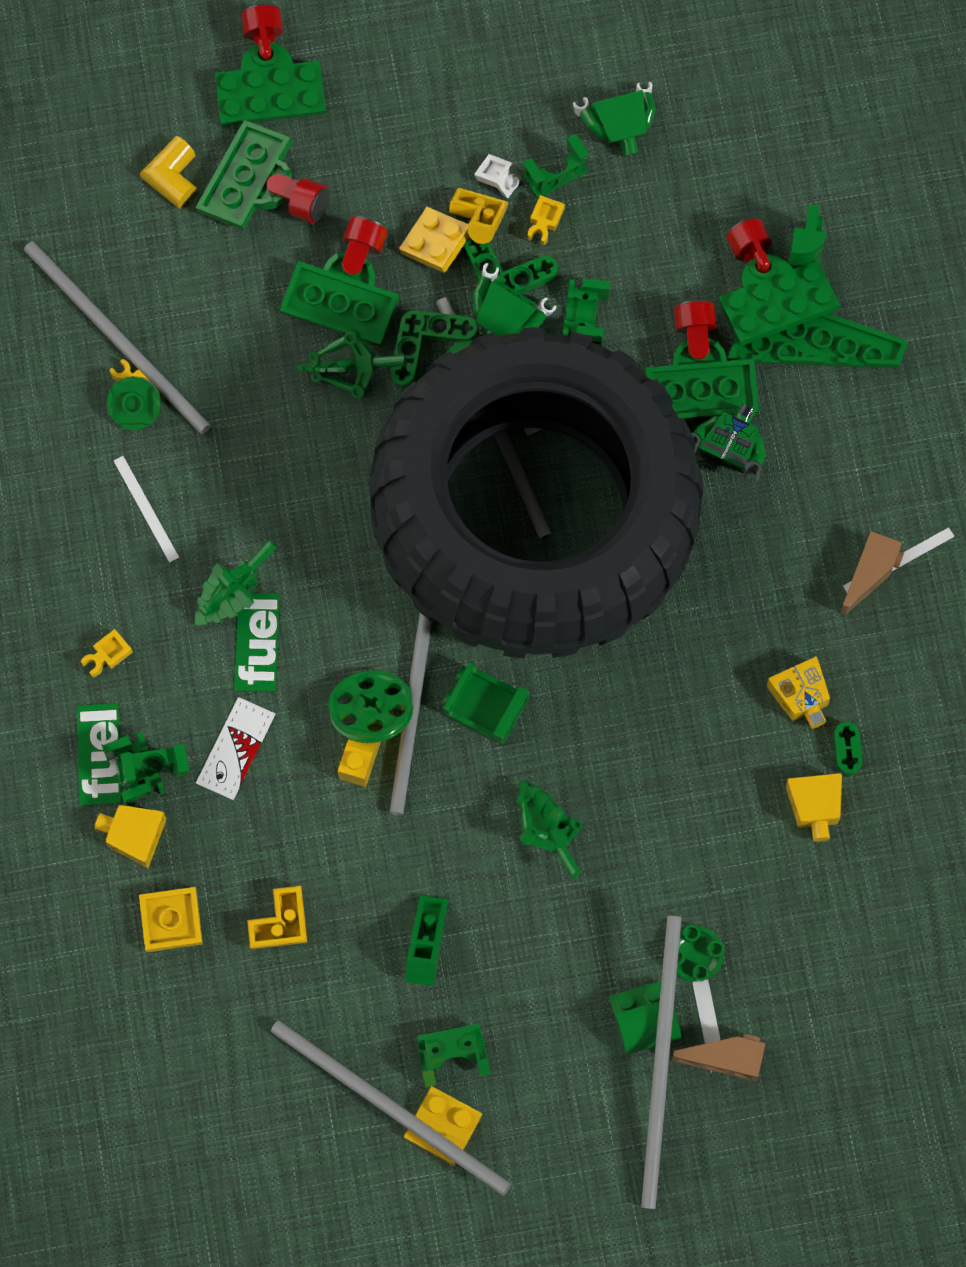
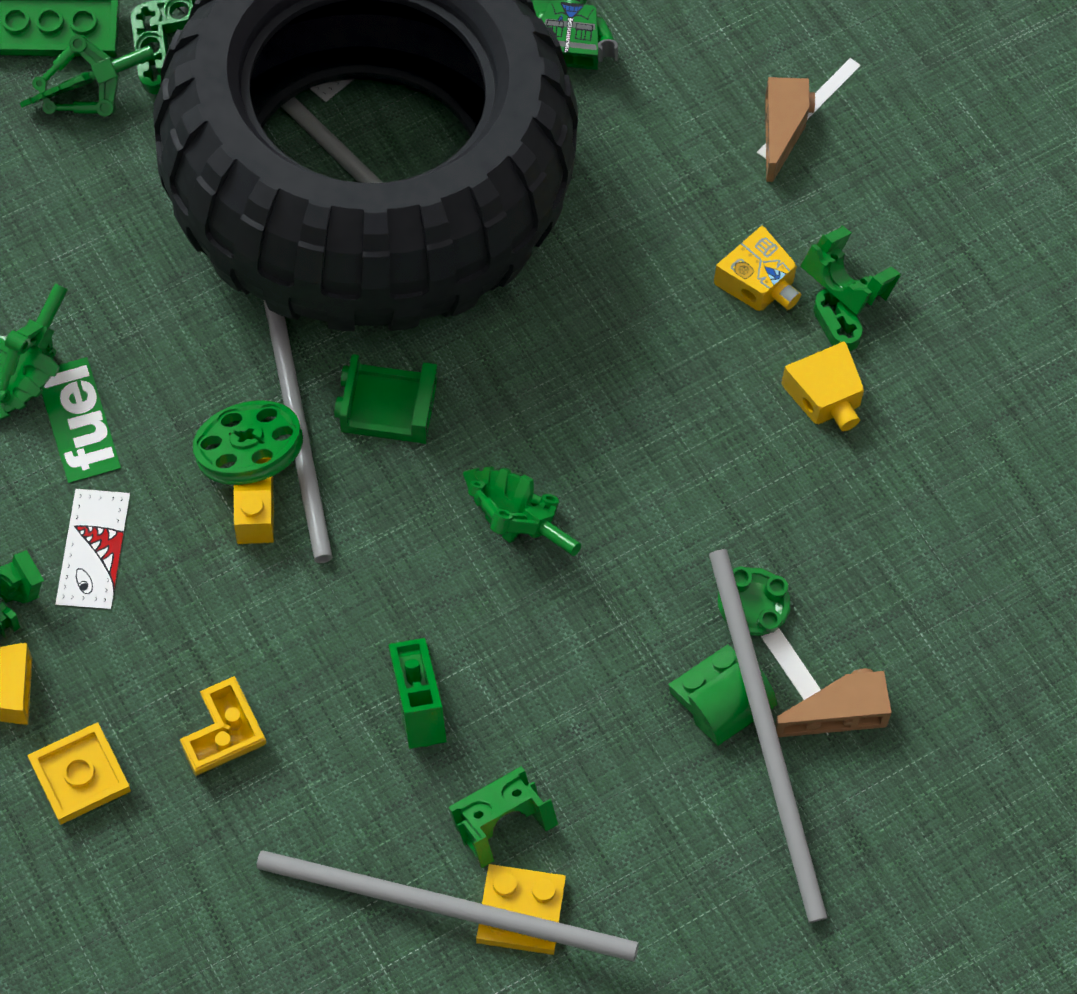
camera: 25 degrees left, 10 degrees down
(855, 708) = (826, 266): none -> green piece

